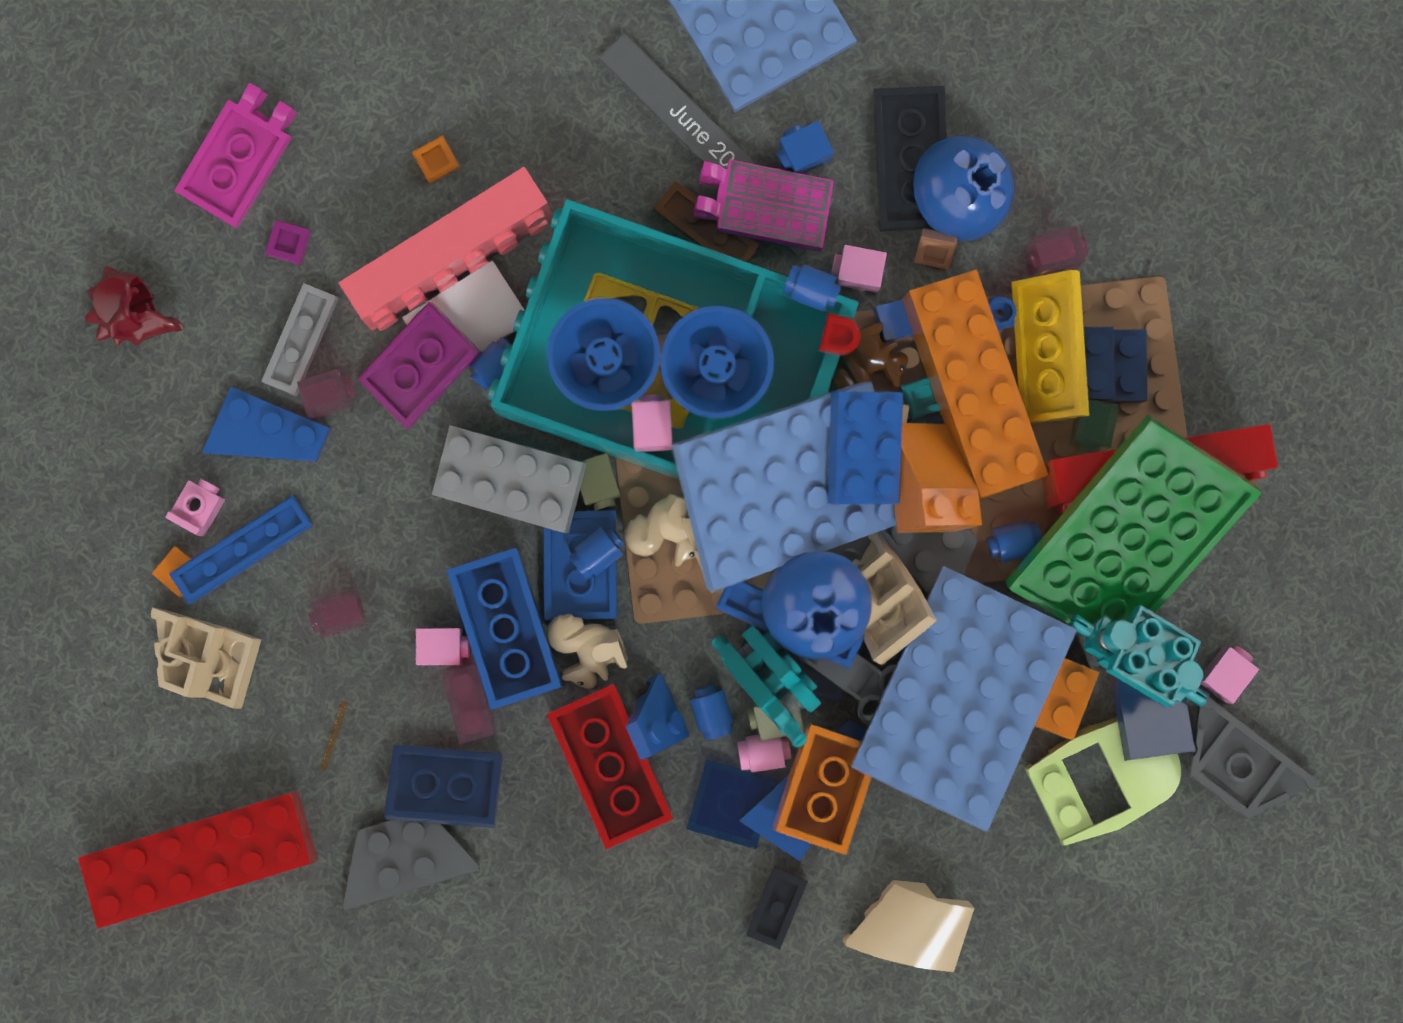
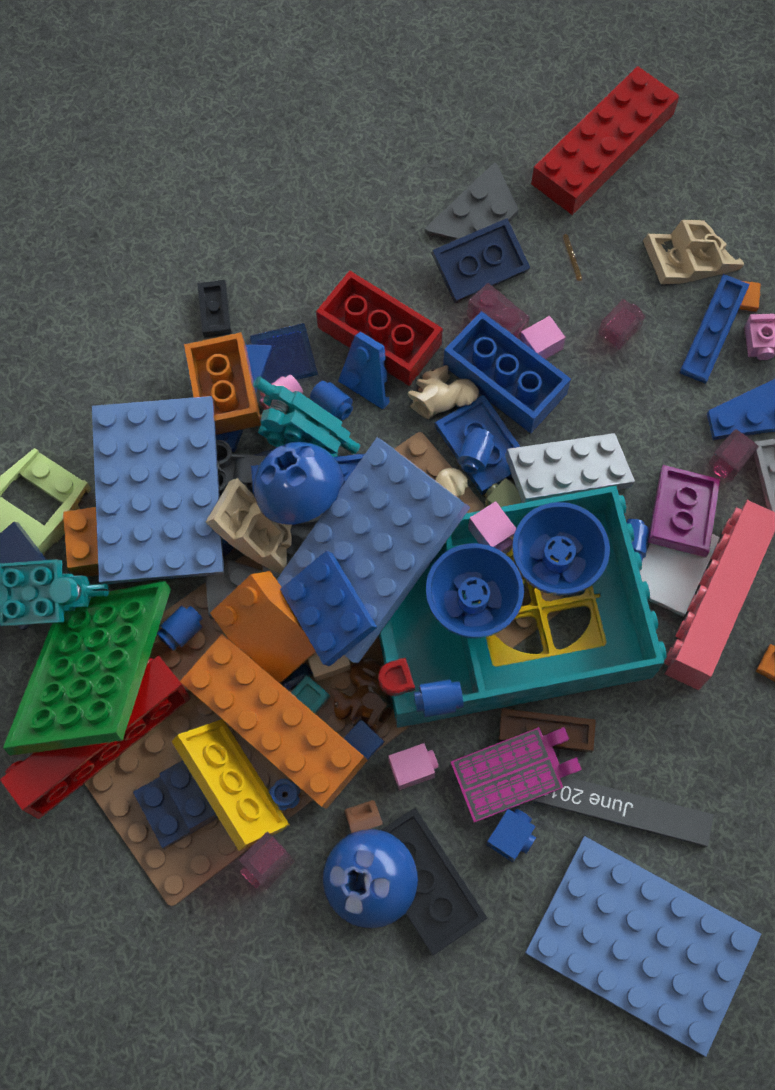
camera: 155 degrees right, 15 degrees down
(913, 927) = (114, 340): tan slope -> none
(1095, 431) = (159, 745): clear green brick -> none

